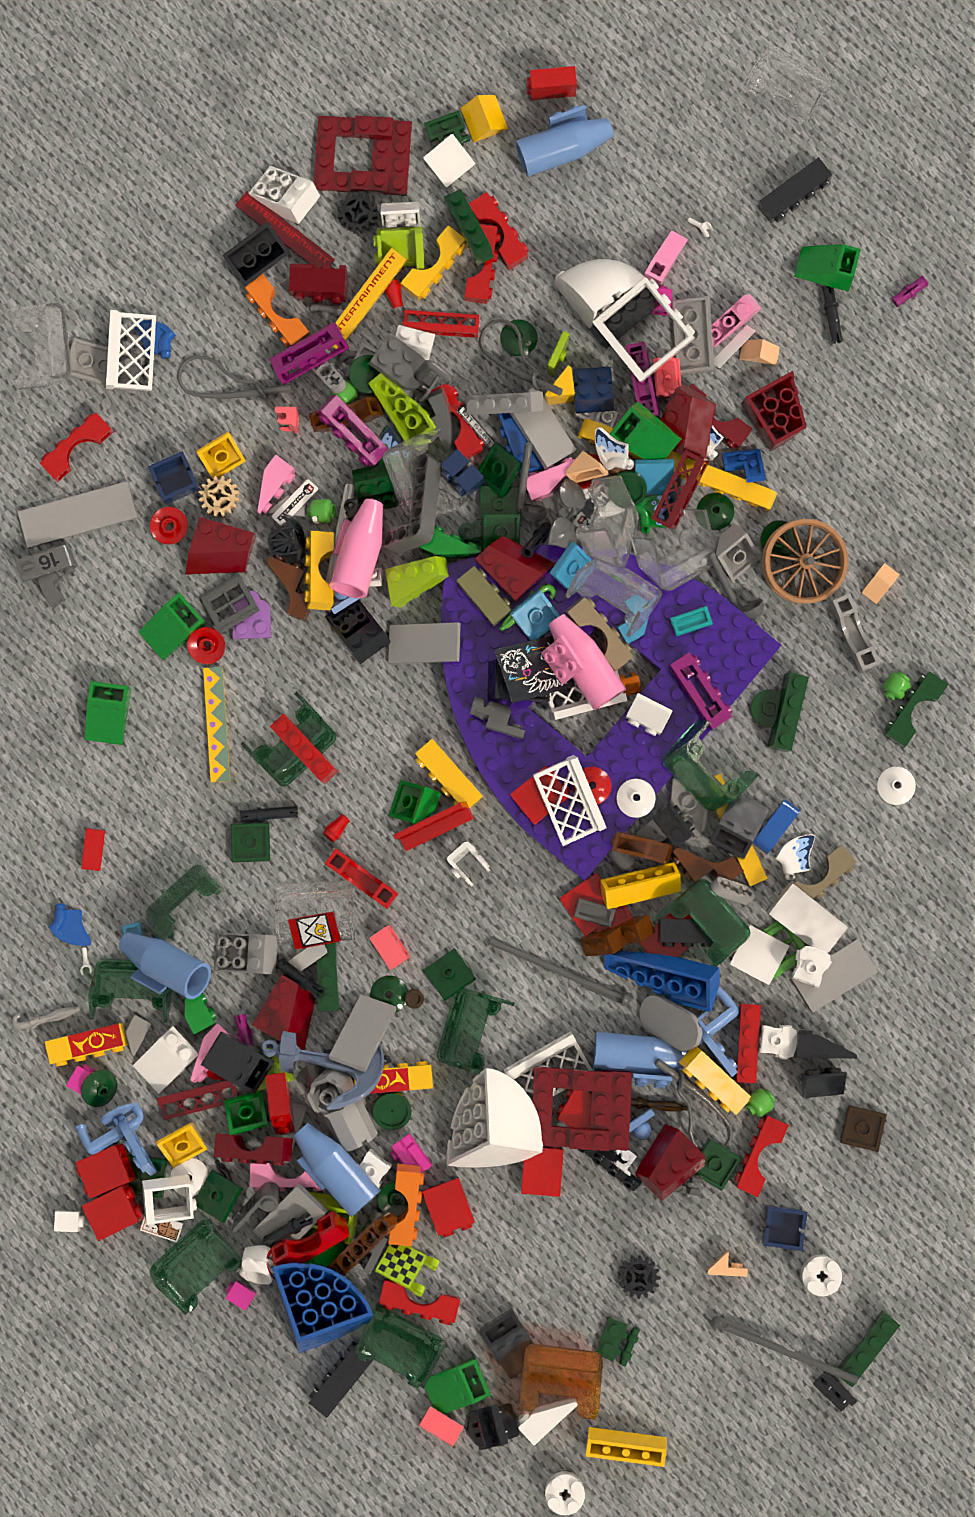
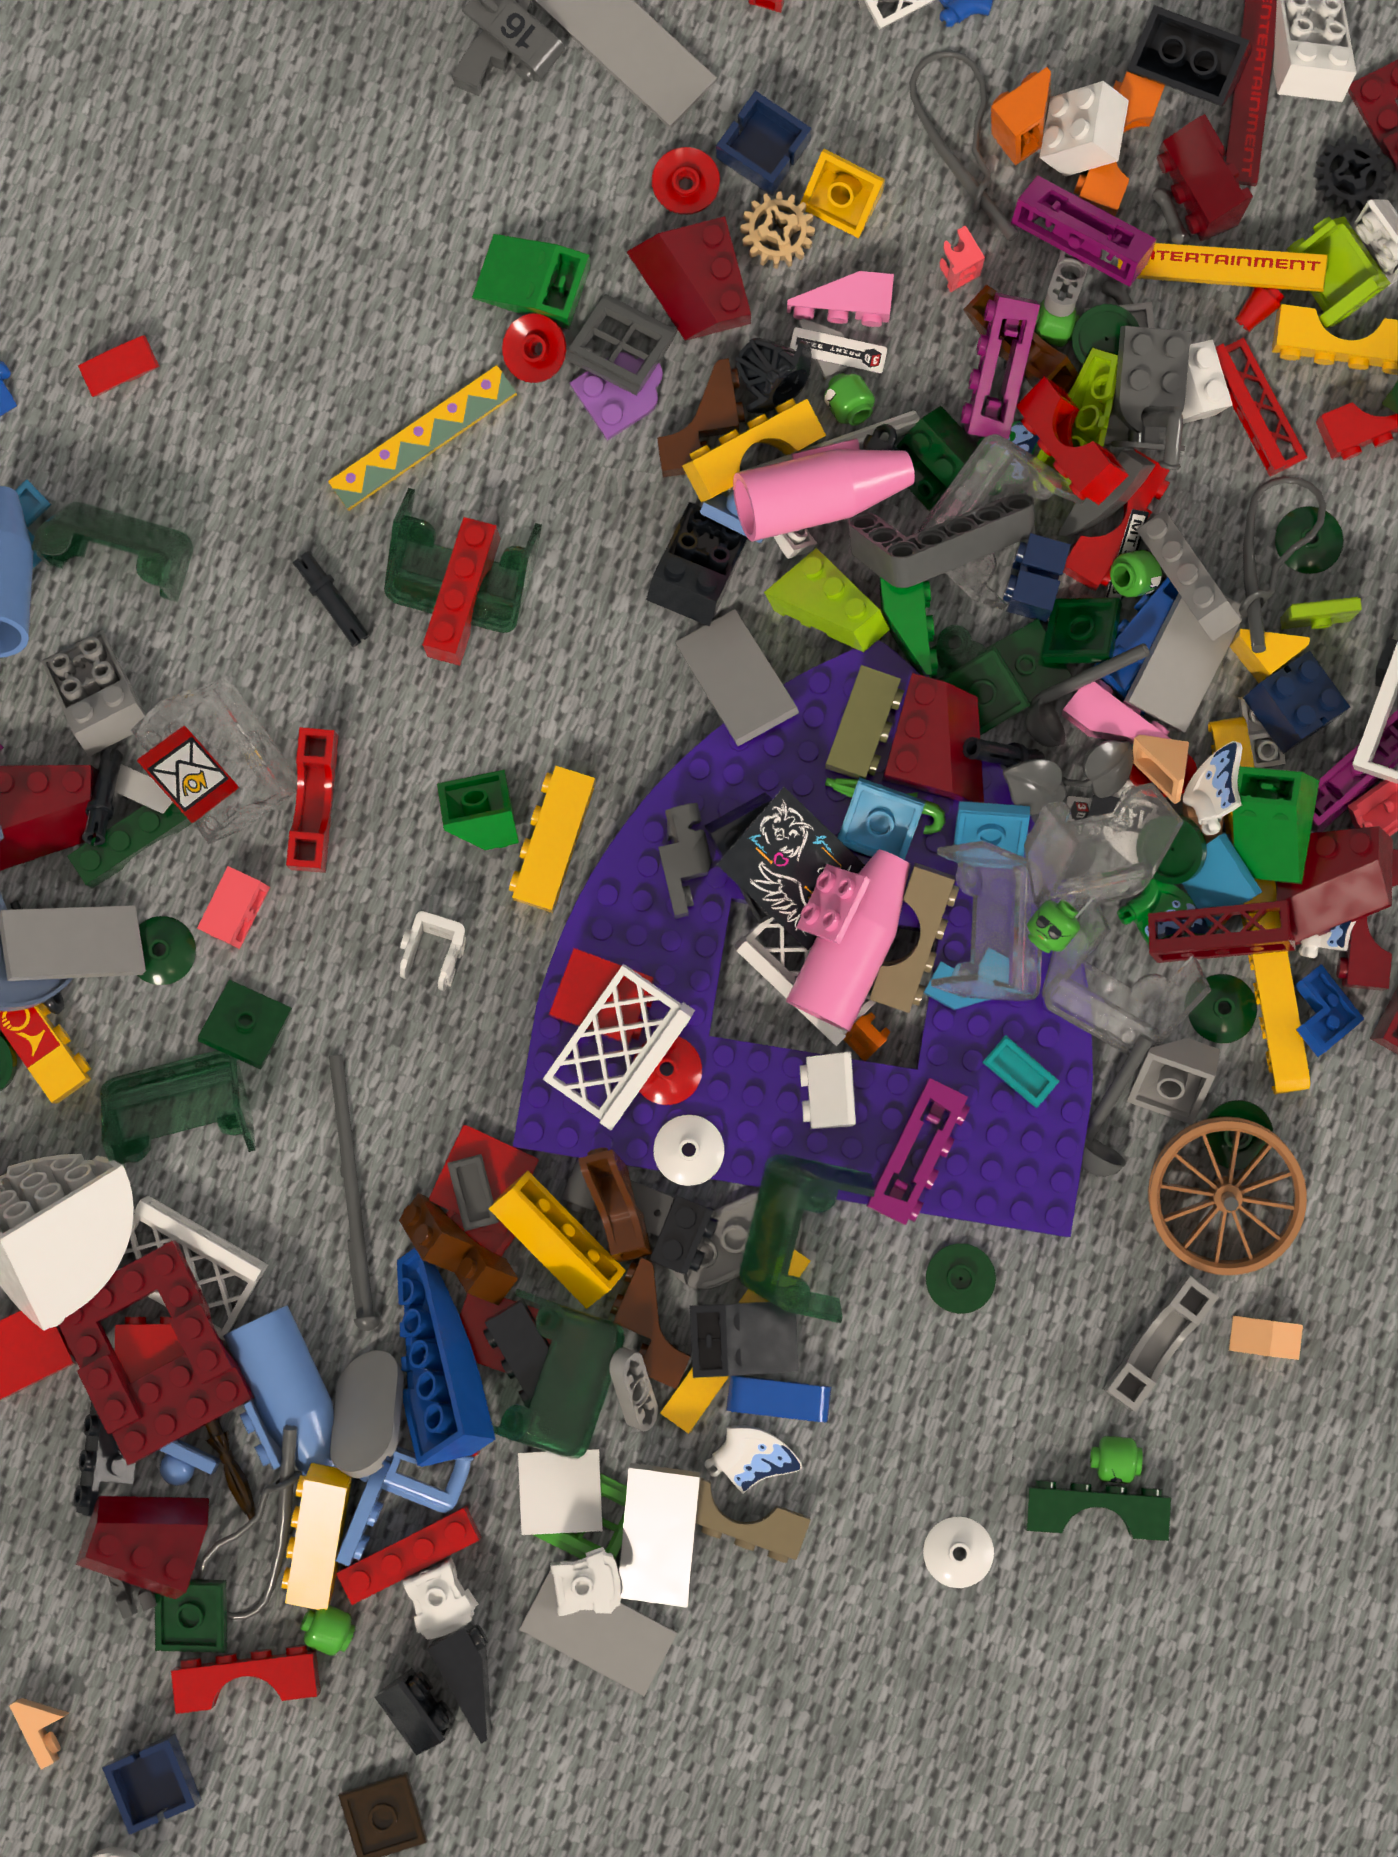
camera: 60 degrees right, 0 degrees up
(107, 712) = (340, 260): green slope -> none
(236, 349) = (1021, 116): none -> orange slope
(250, 842) = (270, 598): dark green plate -> none
(261, 323) = (1084, 128): none -> white brick
(335, 829) = (369, 715): red cone -> none
(389, 421) = (1051, 416): none -> red arch
(413, 998) = (176, 991): dark brown tile -> none
(434, 826) = (461, 864): red fence -> none
(488, 427) = (1135, 573): none -> bright green head
(634, 564) = (1053, 926): none -> bright green head
(785, 728) = (953, 1318): dark green arch -> none

